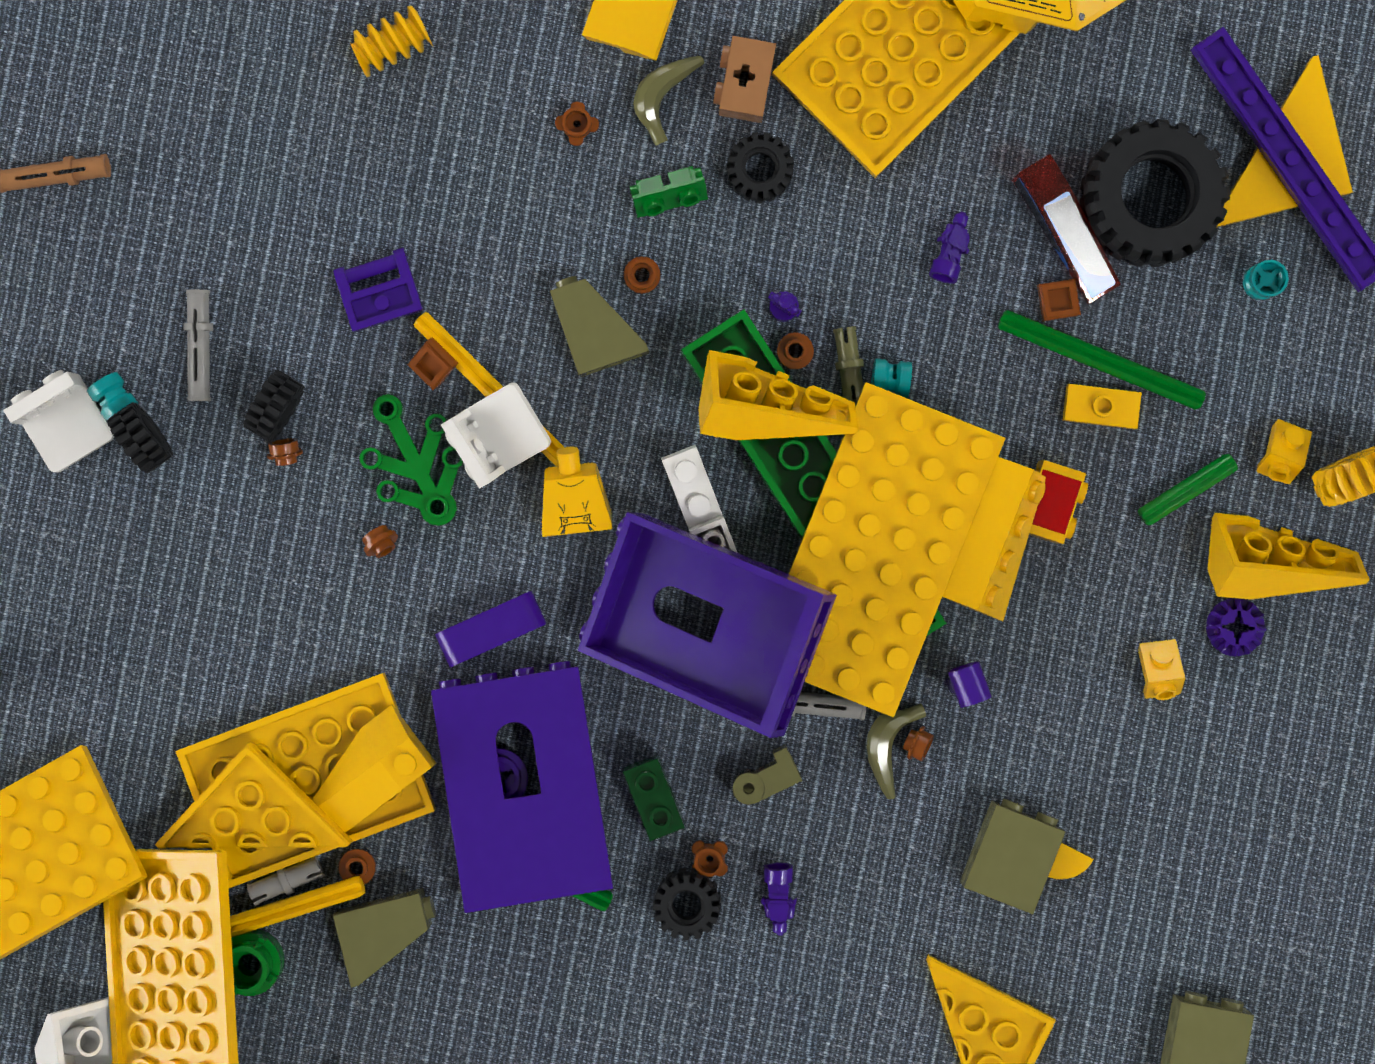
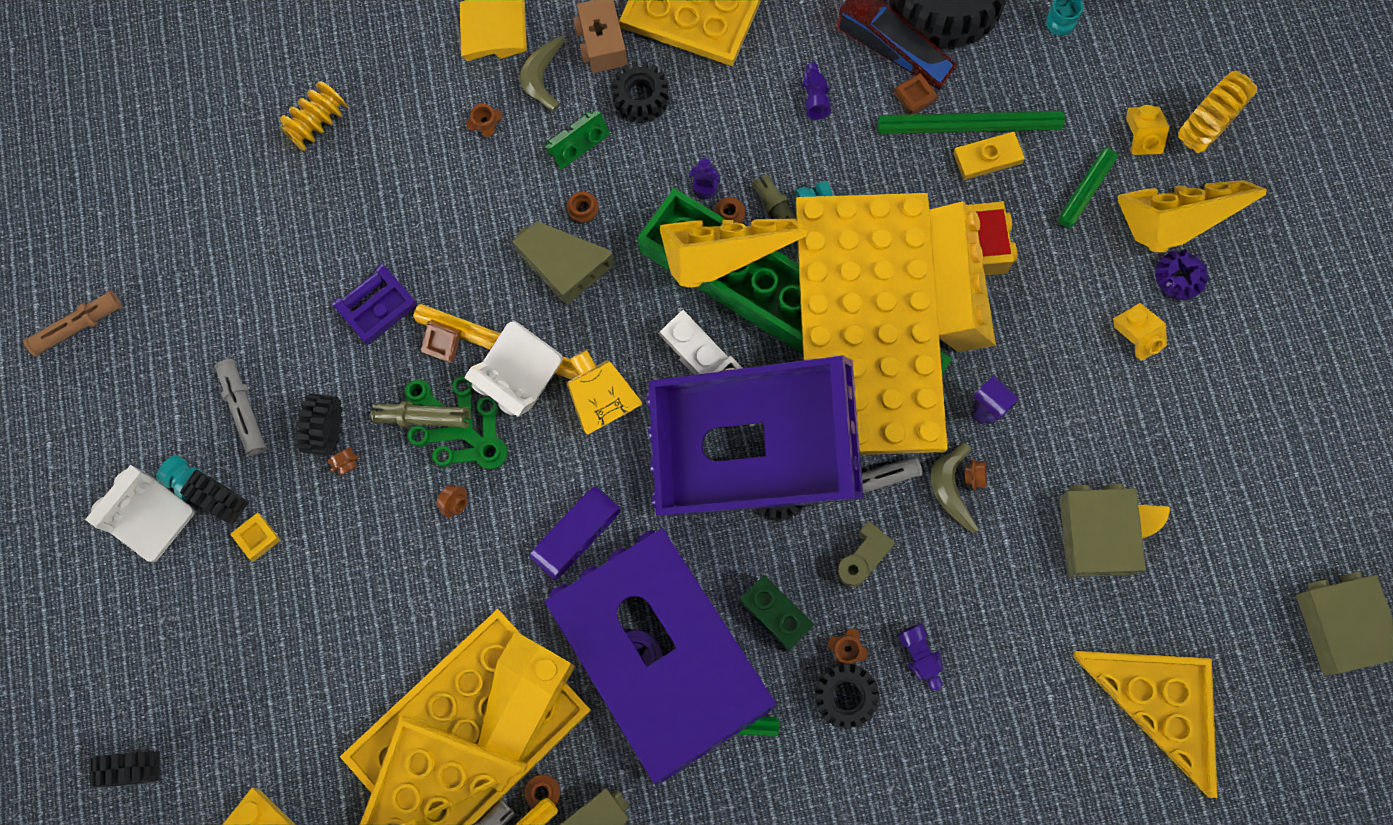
camera: 20 degrees left, 15 degrees down
(167, 492) = (255, 537): none -> yellow plate
(369, 431) = (407, 414): none -> olive pin

